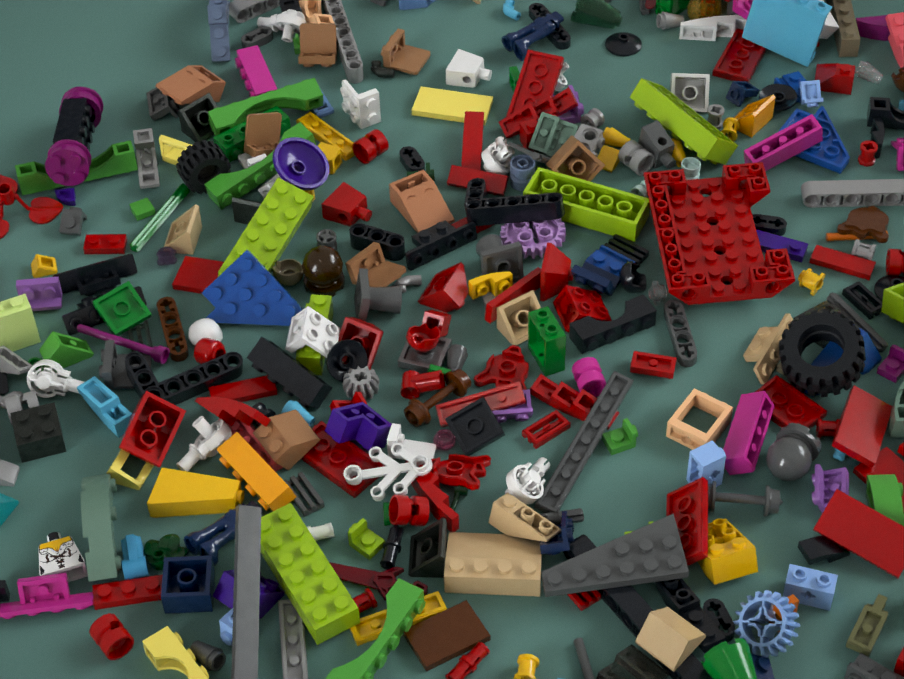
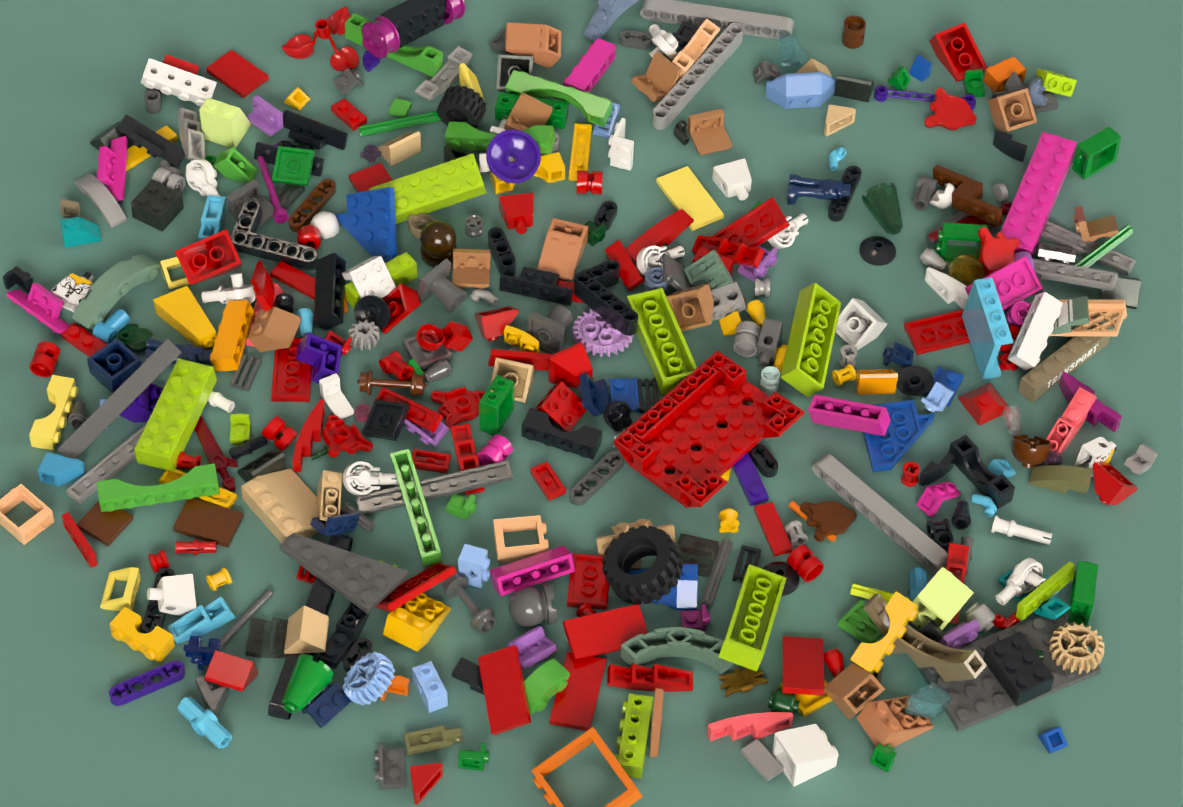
camera: 45 degrees right, 5 degrees up
(391, 470) = (314, 411): white plant -> none
(603, 464) = (416, 507): none -> bright green brick

